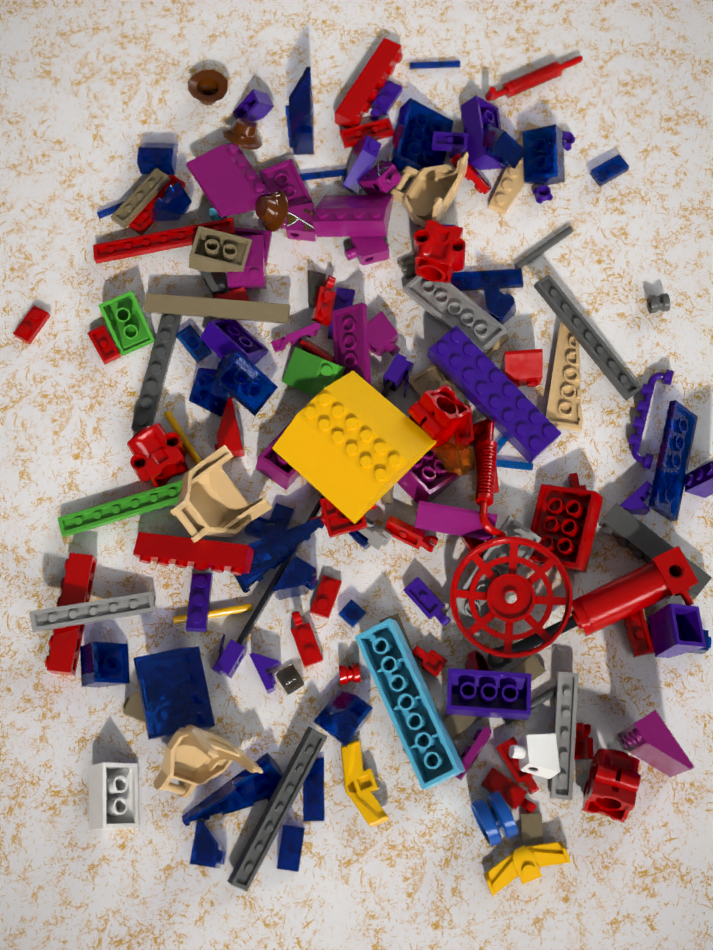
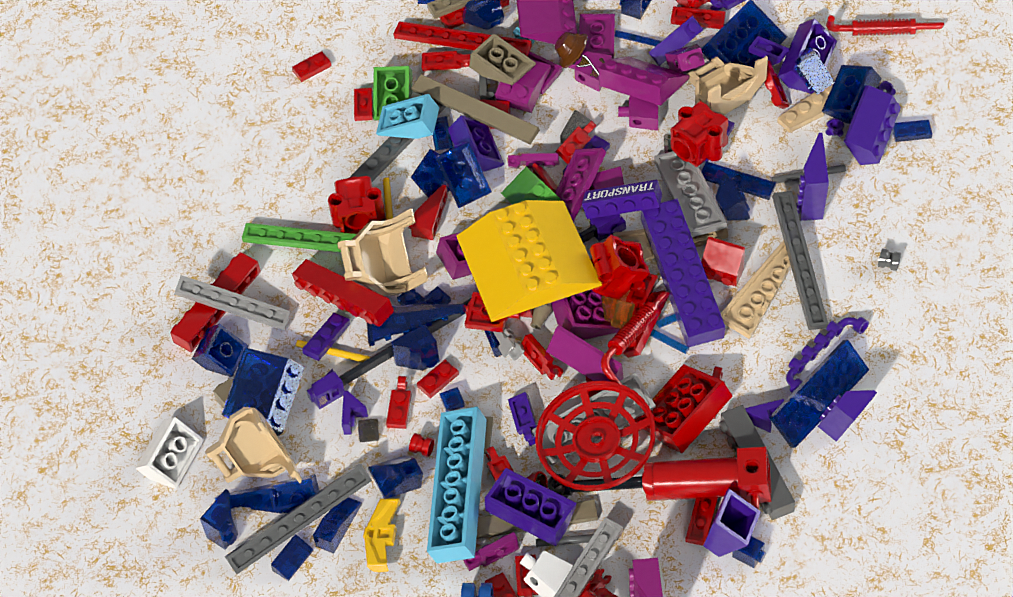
camera: 30 degrees right, 15 degrees down
(157, 268) = (444, 60): none -> red hinge
(158, 343) = (409, 118): none -> medium azure slope
(407, 347) = (622, 199): none -> dark purple brick
(568, 255) = (813, 184): none -> dark purple slope
(580, 180) = (872, 125): none -> dark purple slope

